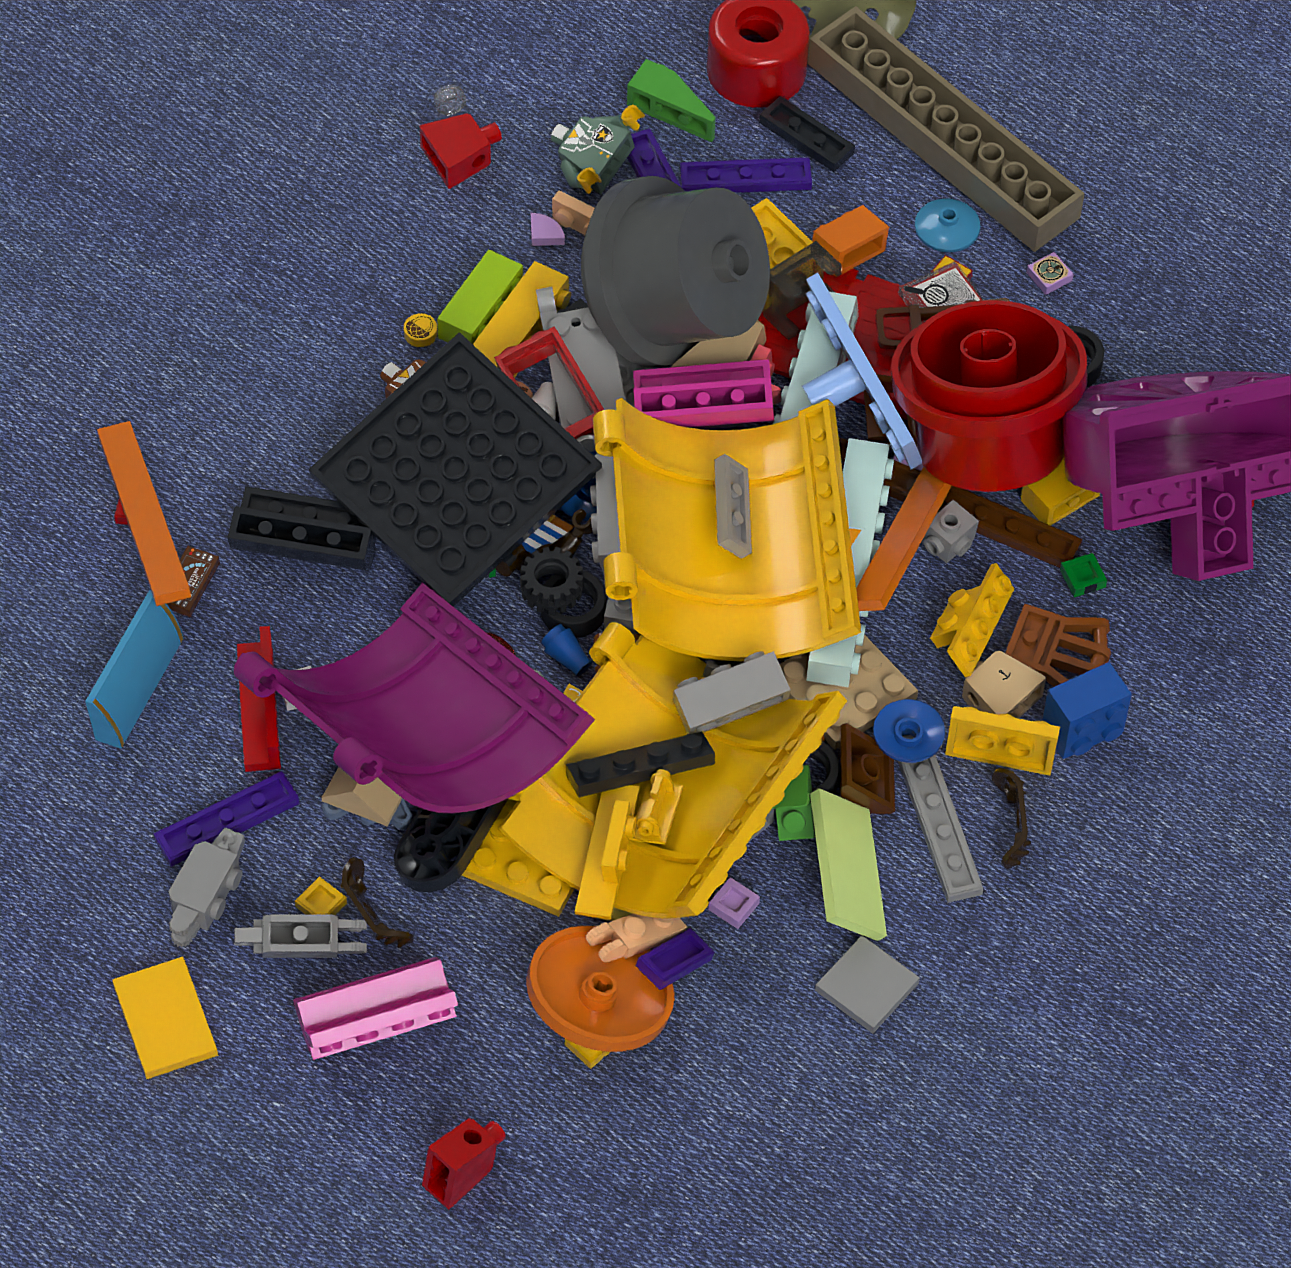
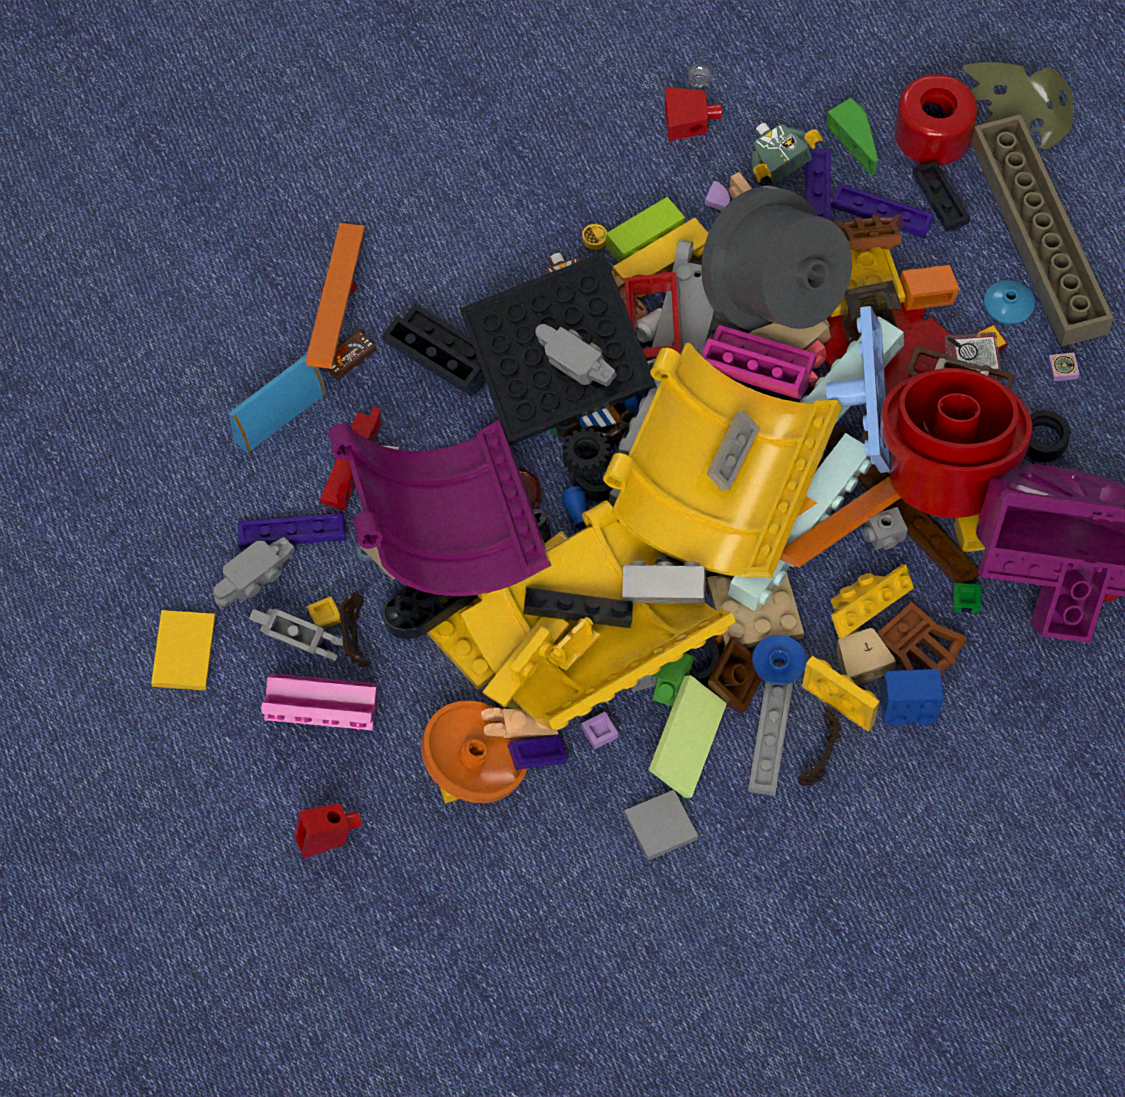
camera: 25 degrees right, 5 degrees up
(486, 467) = (575, 356): none -> light grey hinge
(768, 195) = (872, 232): none -> dark orange plate

